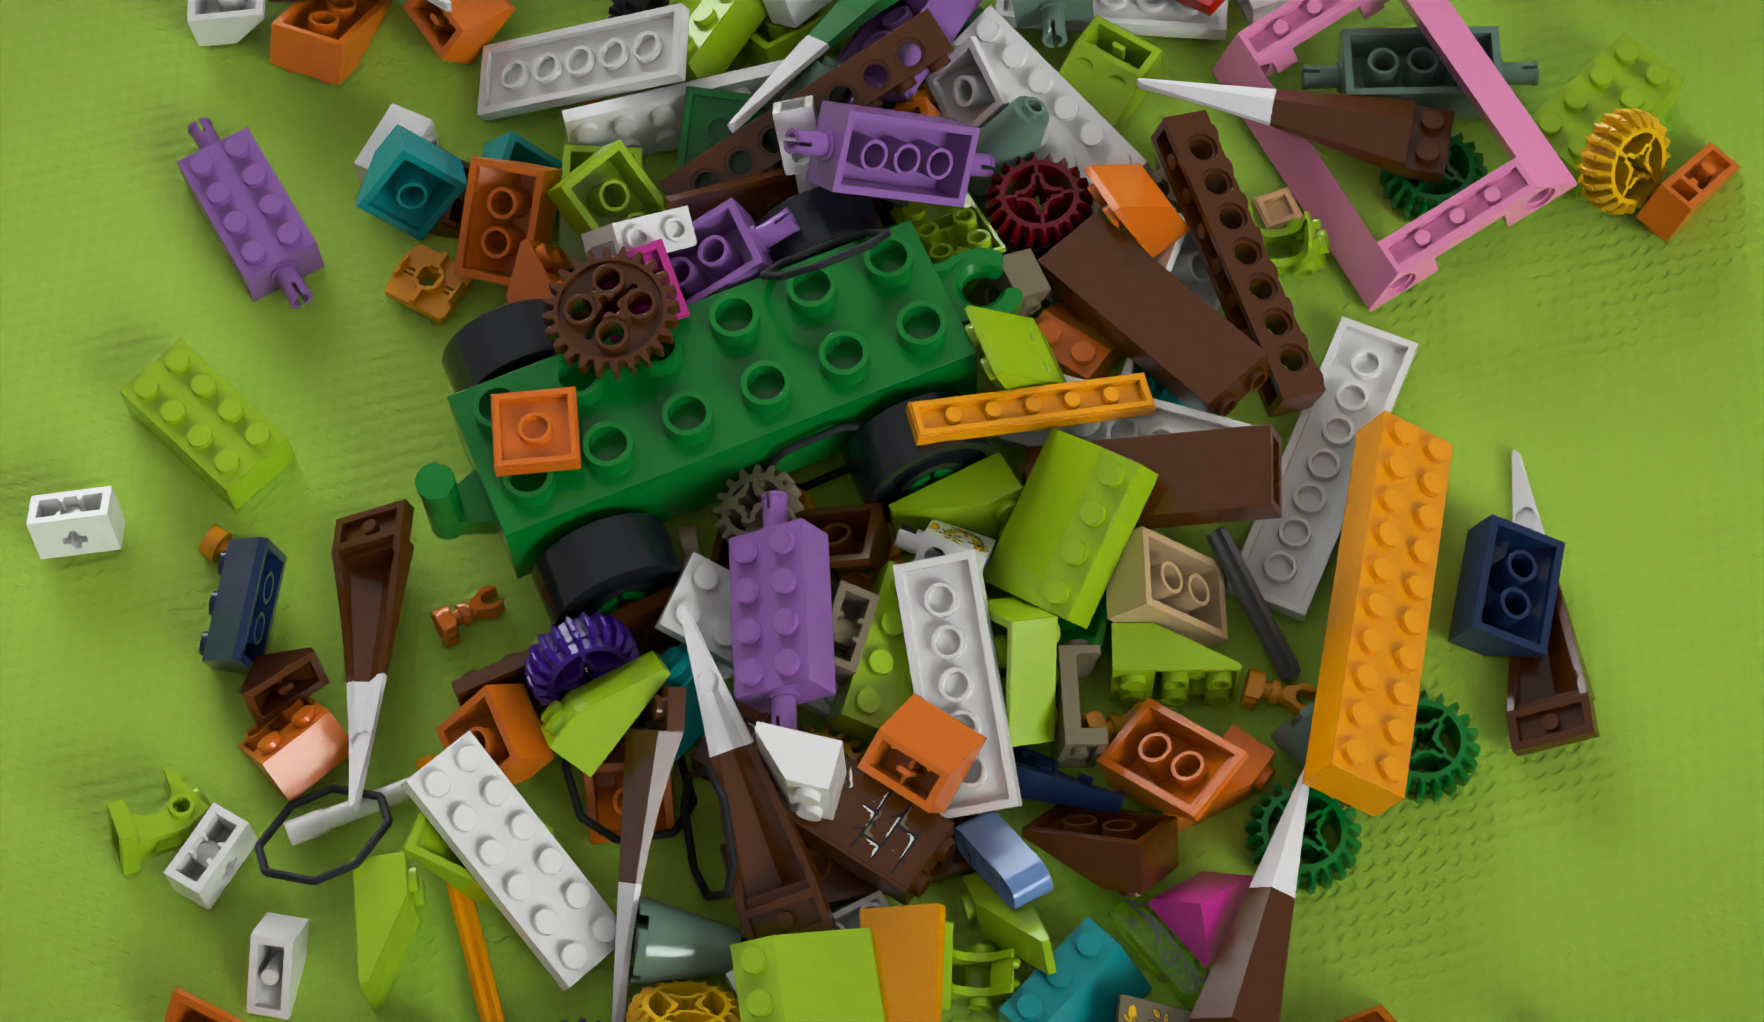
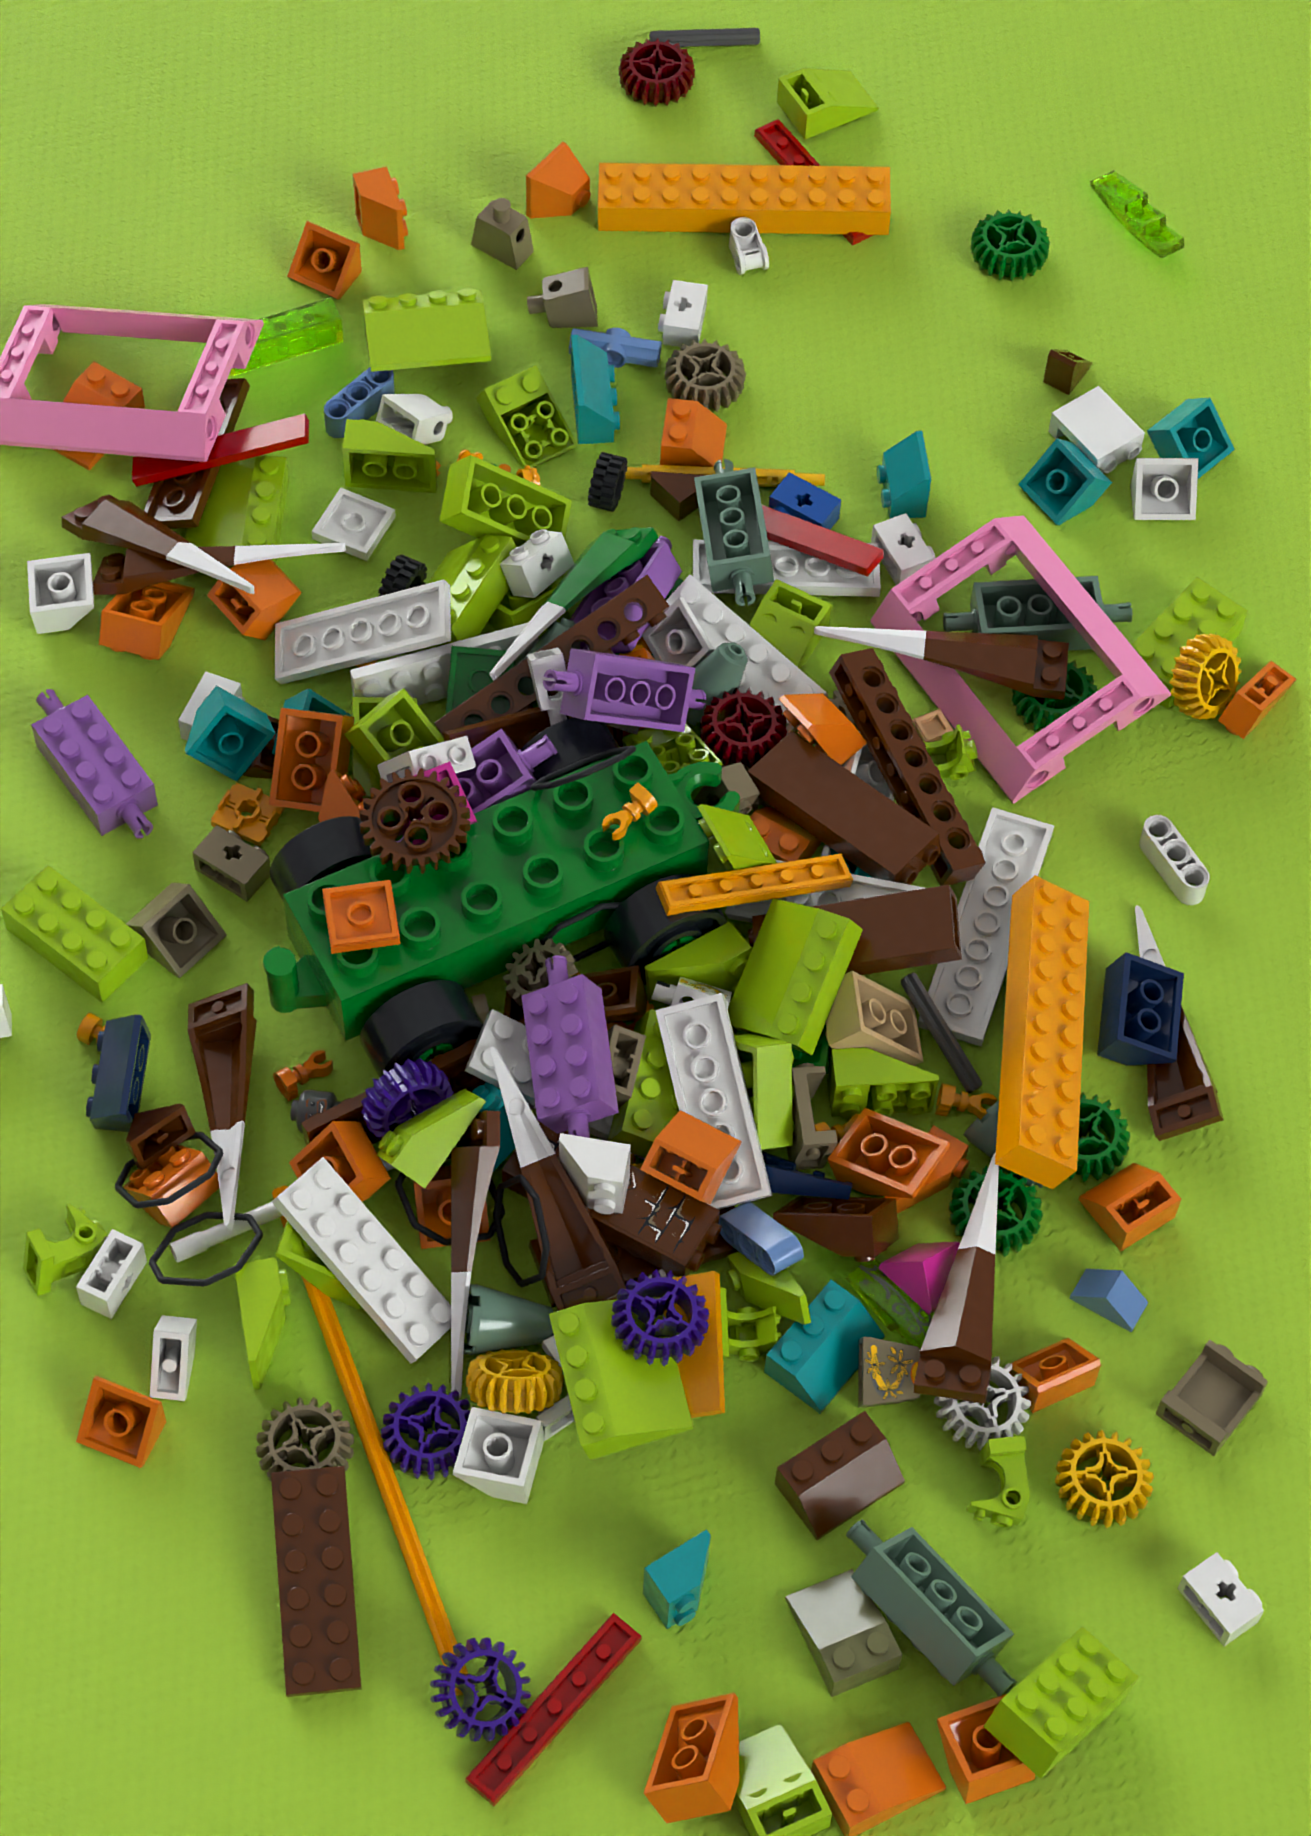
camera: 10 degrees left, 5 degrees down
(269, 772) = (165, 1201): none -> black piece
(330, 424) = (177, 928): none -> dark tan slope
(403, 343) = (232, 862): none -> dark tan brick
(471, 655) = (310, 1103): none -> dark grey head
(837, 937) = (640, 1300): none -> dark purple gear
(894, 302) = (642, 802): none -> light orange piece
(1439, 955) = (1110, 1296): none -> medium blue slope
(1474, 837) = (1131, 1204): none -> orange slope
(1567, 377) = (1175, 873): none -> white beam

